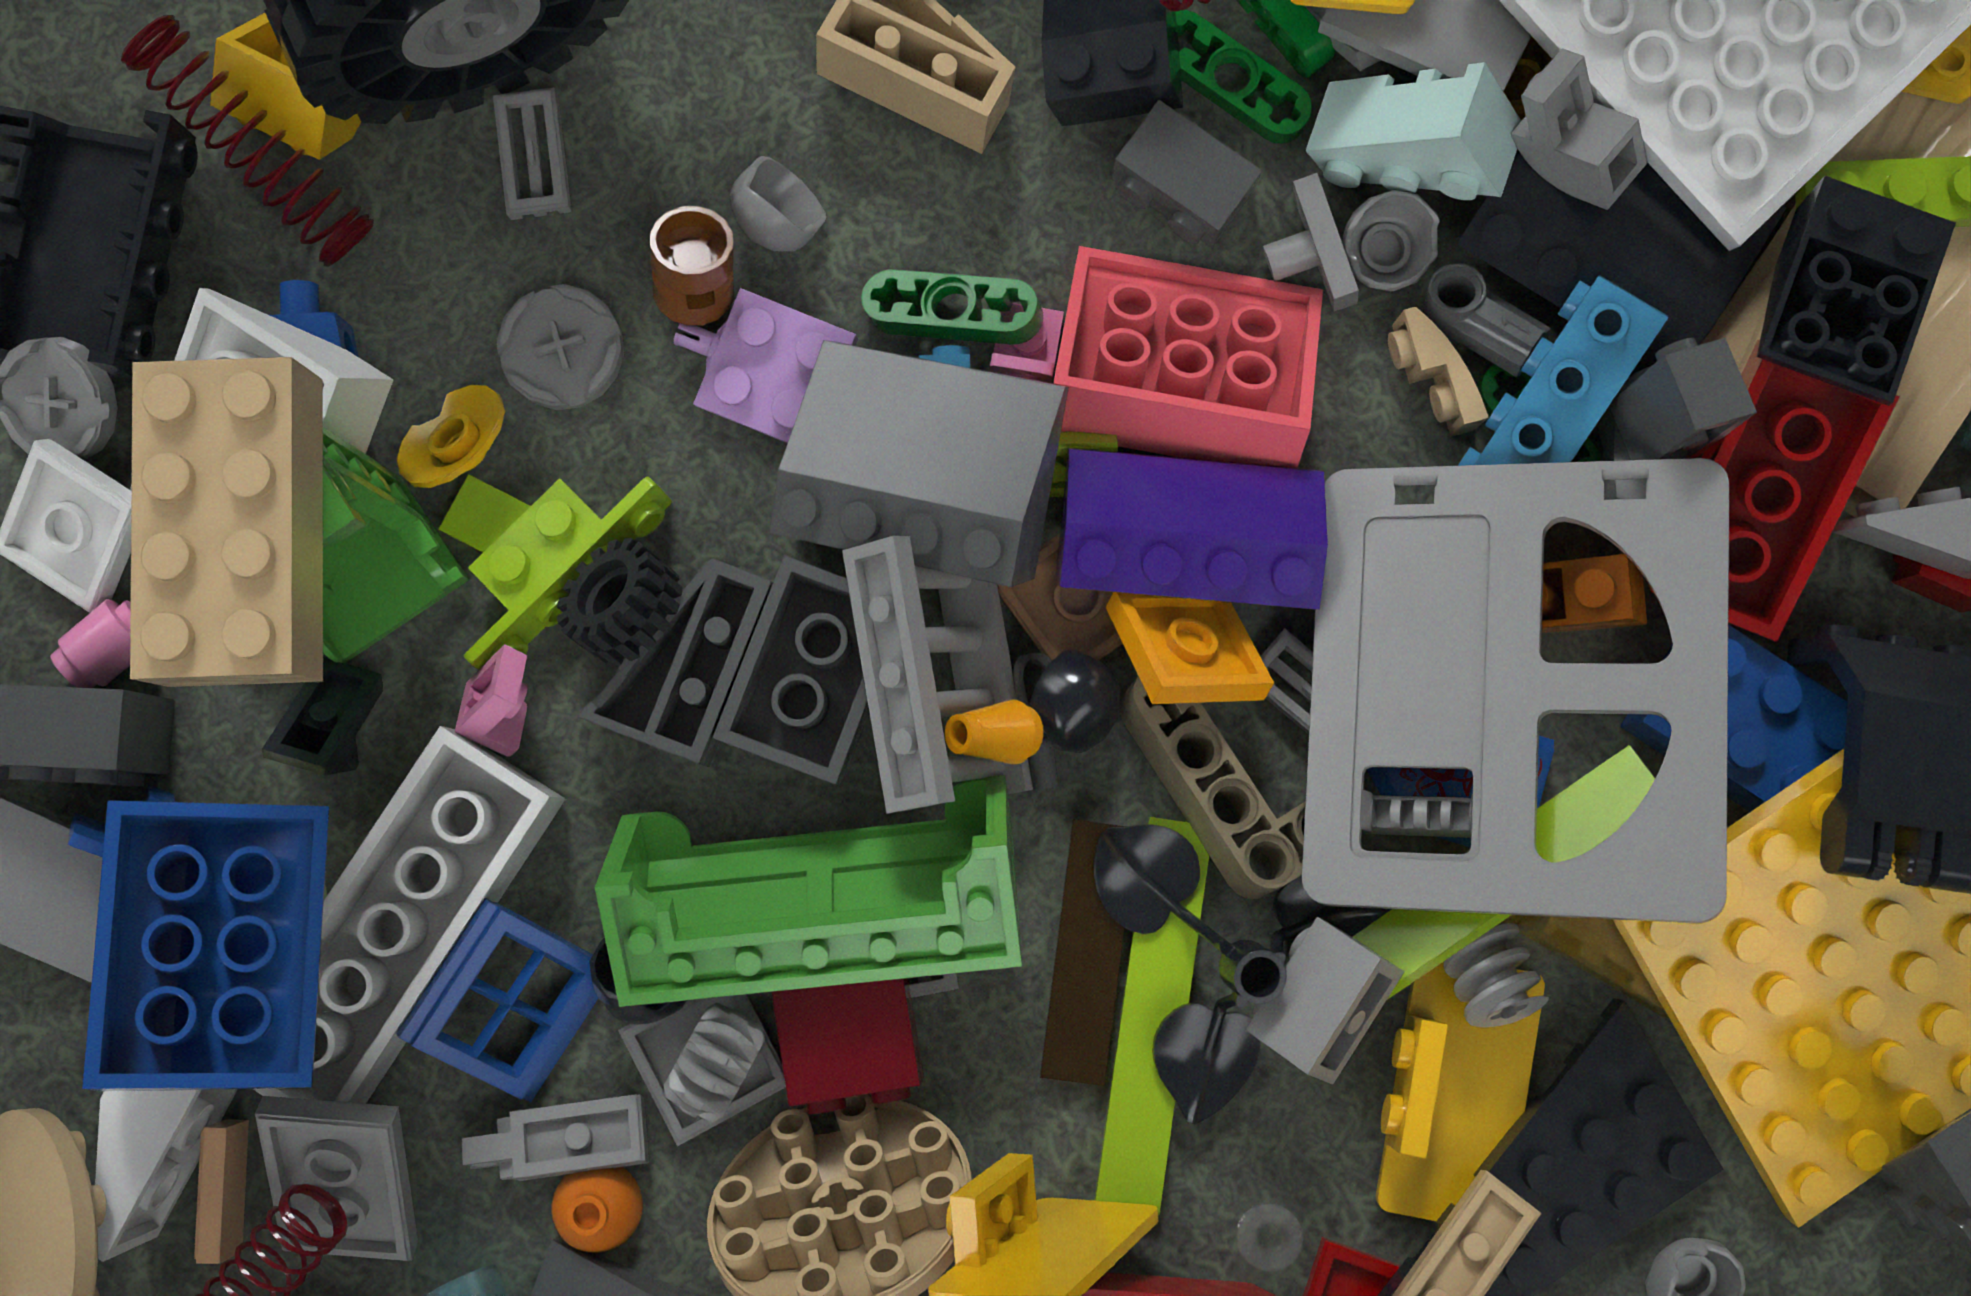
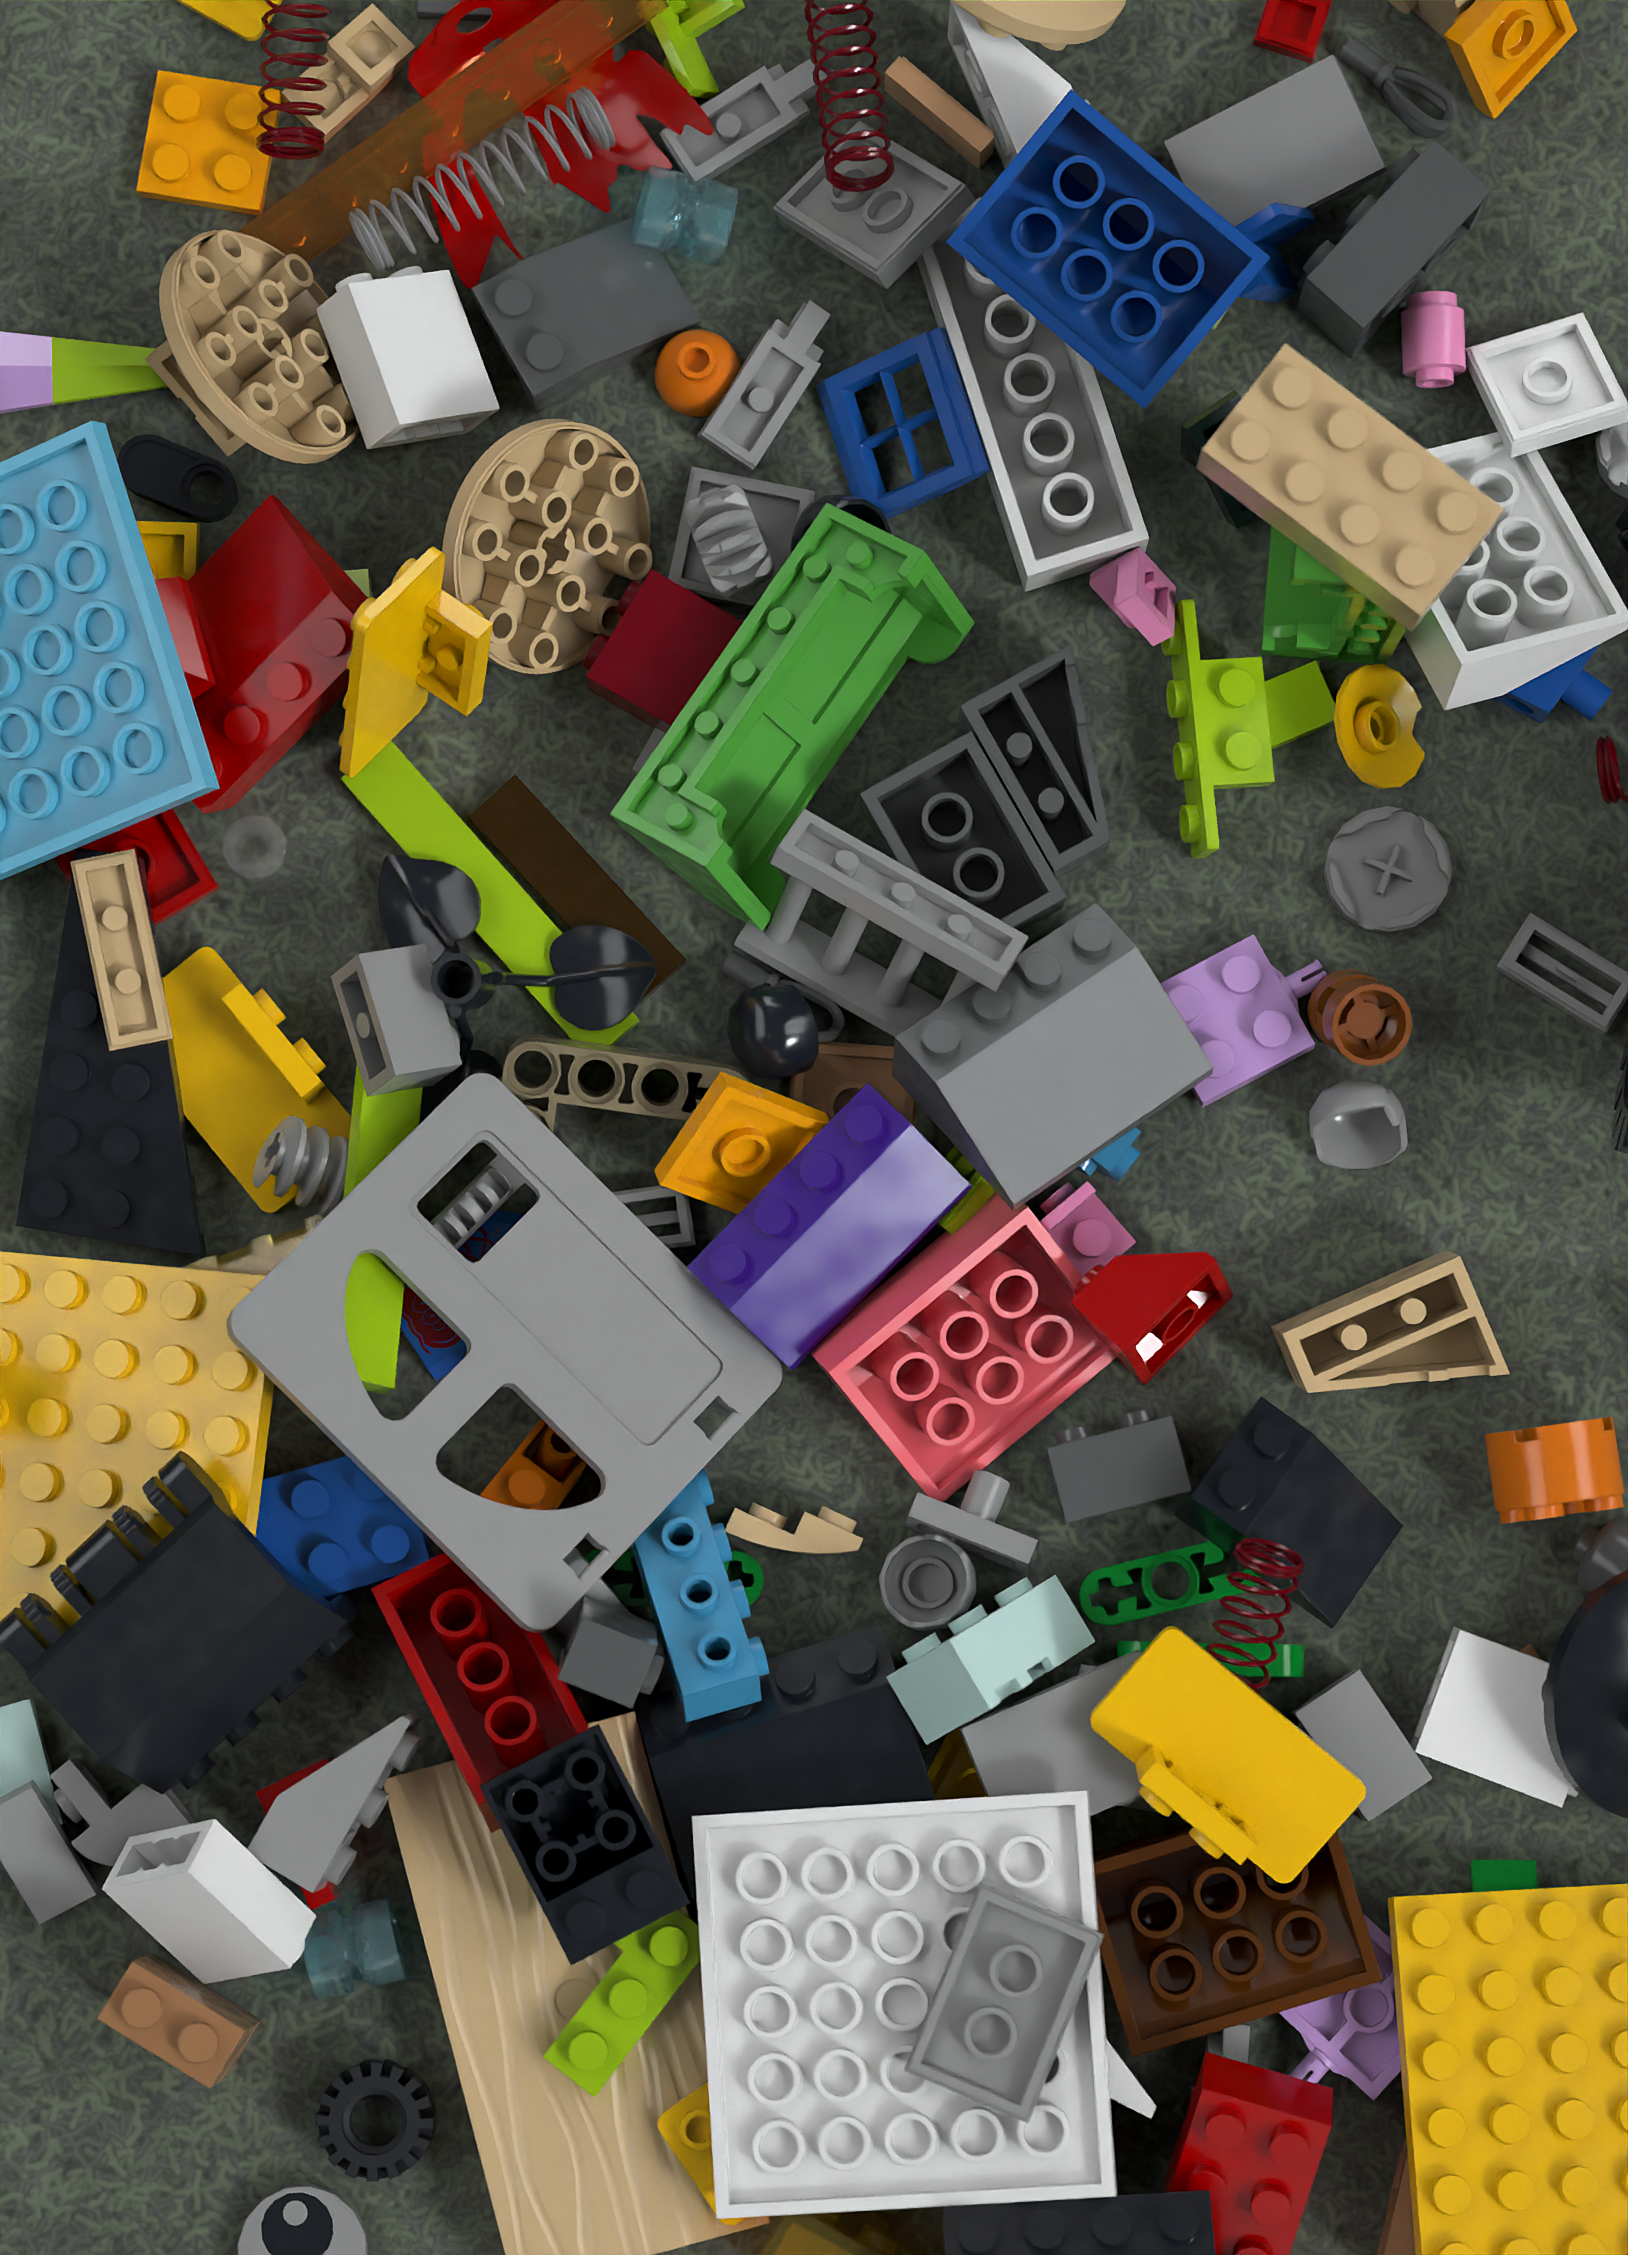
camera: 130 degrees right, 0 degrees up
(619, 601) = (1110, 752): black tyre -> none
(930, 288) = (1184, 1154): green beam -> none
(997, 732) = (797, 944): light orange cone -> none
(1050, 246) = (1150, 1305): none -> red slope
(1485, 321) = (799, 1599): dark grey piece -> none
(1575, 141) = (880, 1762): light grey brick -> none

